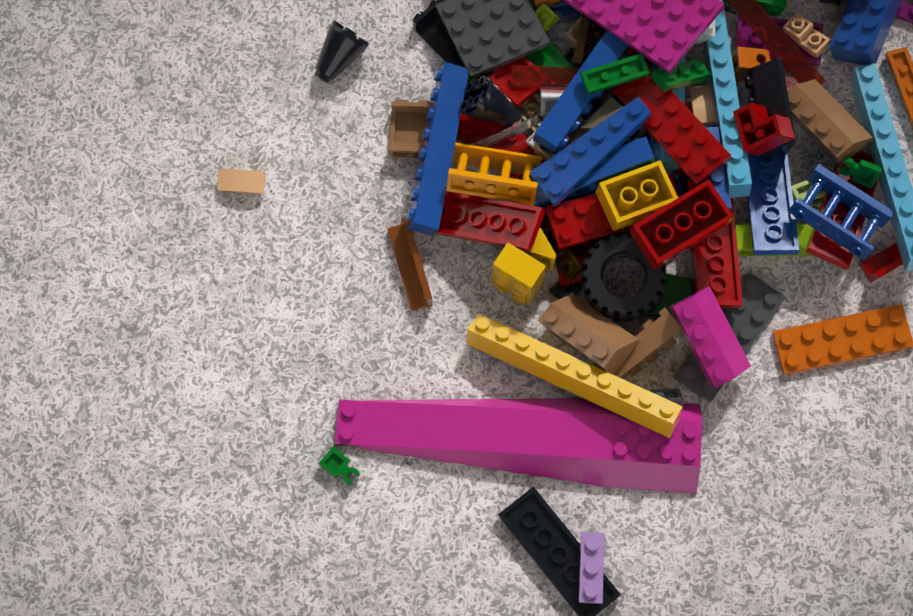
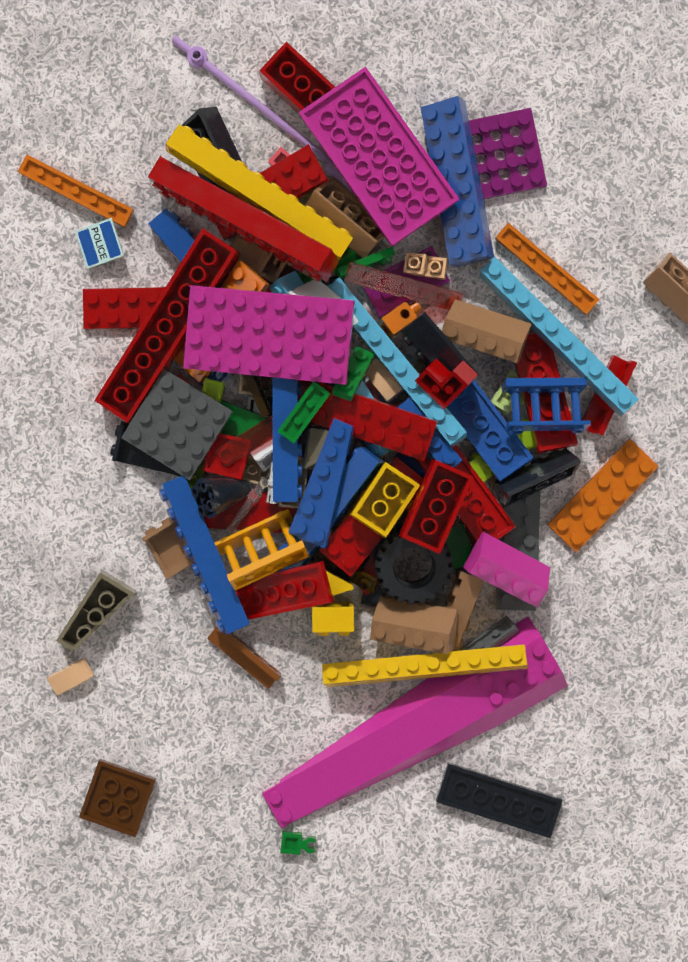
camera: 30 degrees left, 15 degrees up
(205, 315) = (117, 797): none -> reddish brown plate
(308, 135) = (98, 604): none -> dark tan wedge
(338, 51) = (71, 522): black cone -> none
(591, 568) = (530, 797): lavender plate -> none
(790, 278) = (537, 476): none -> black slope
(862, 173) = (541, 357): green plate -> none

